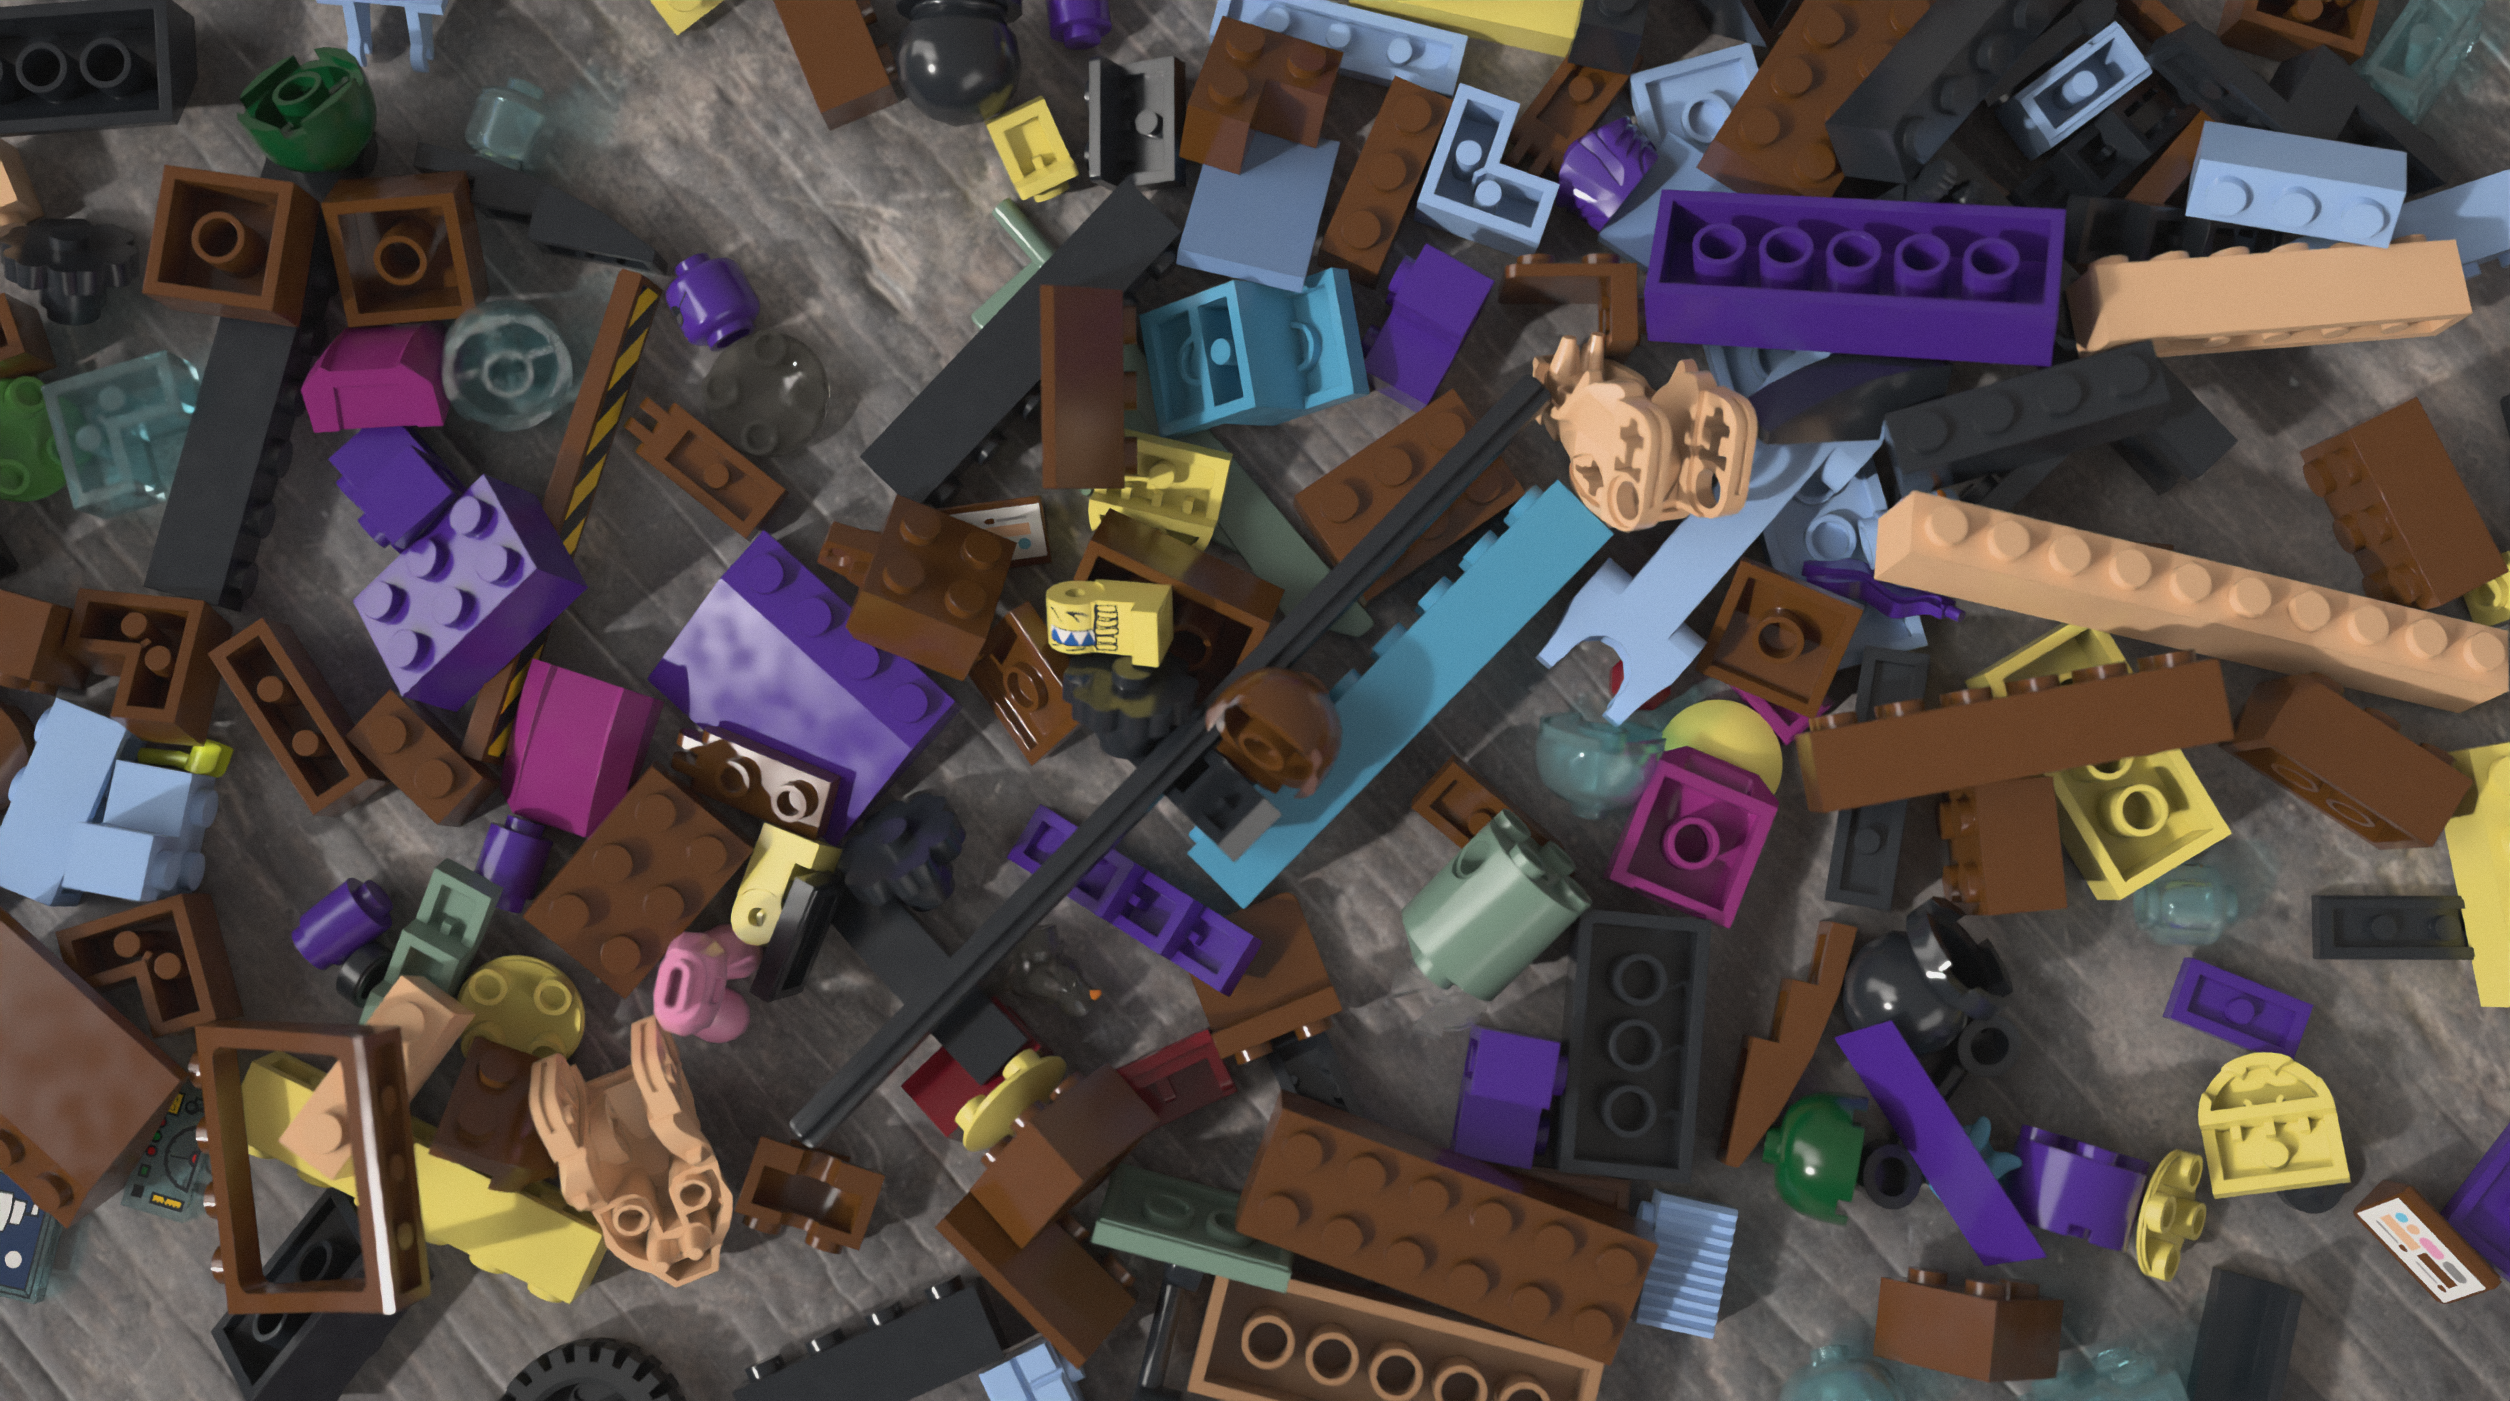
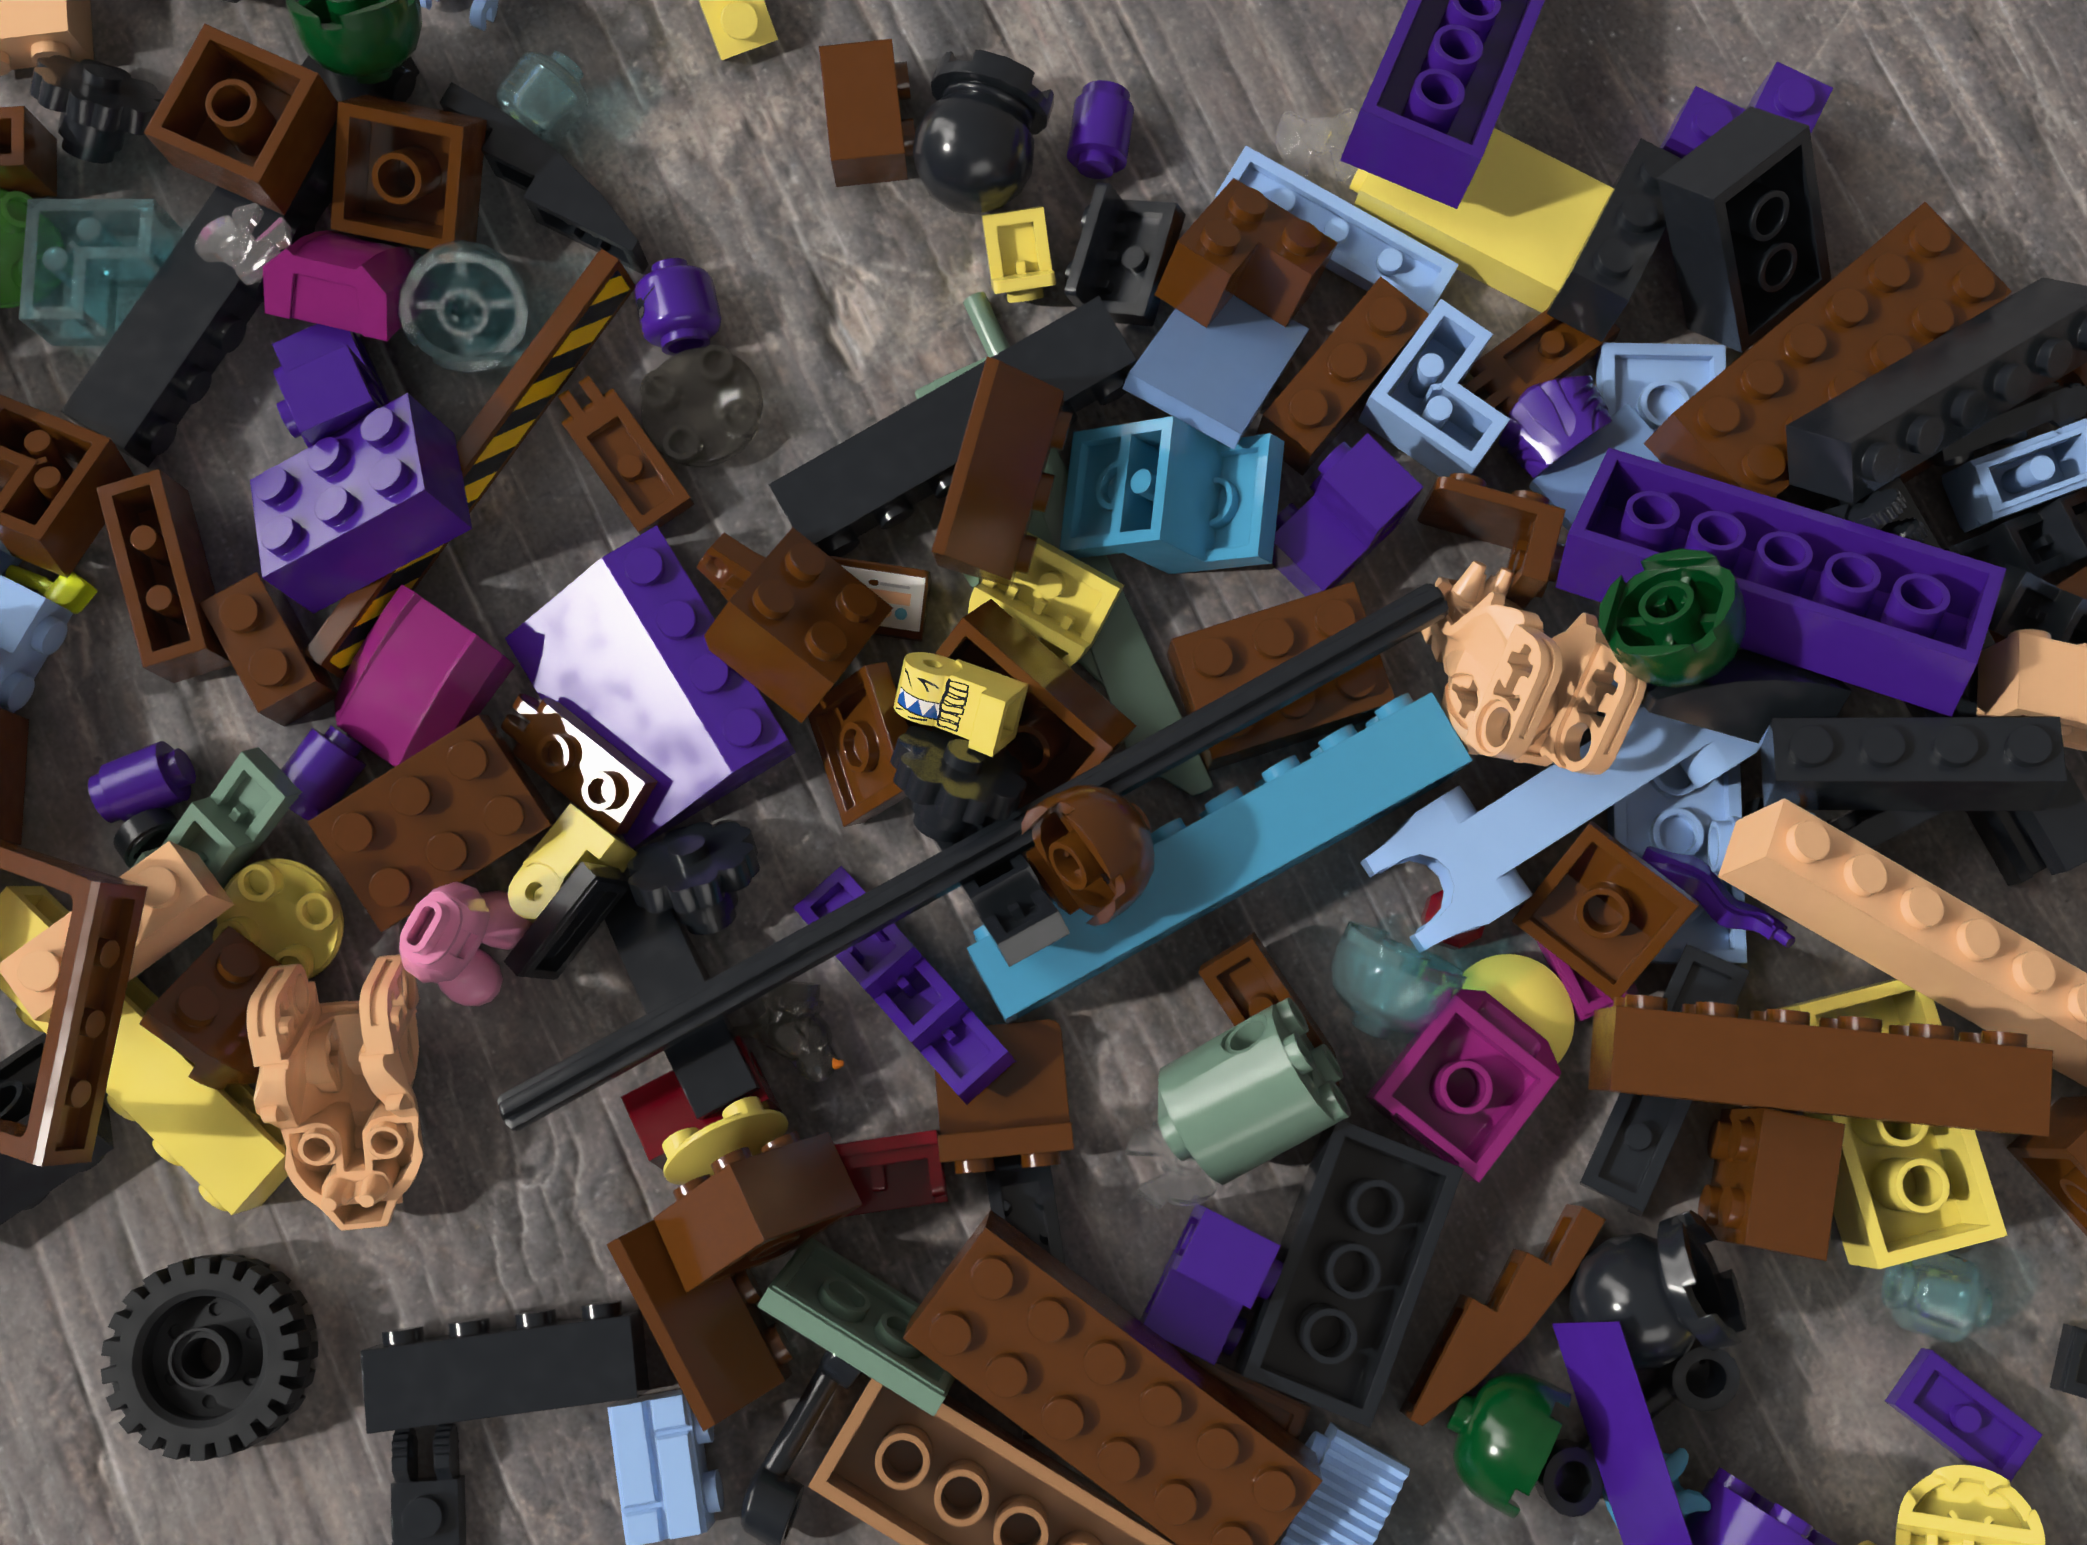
camera: 15 degrees right, 5 degrees down
(255, 369) = (233, 242): none -> clear piece
(809, 1192) = (500, 1174): reddish brown cylinder -> none
(1764, 351) = (1675, 618): none -> dark green cylinder

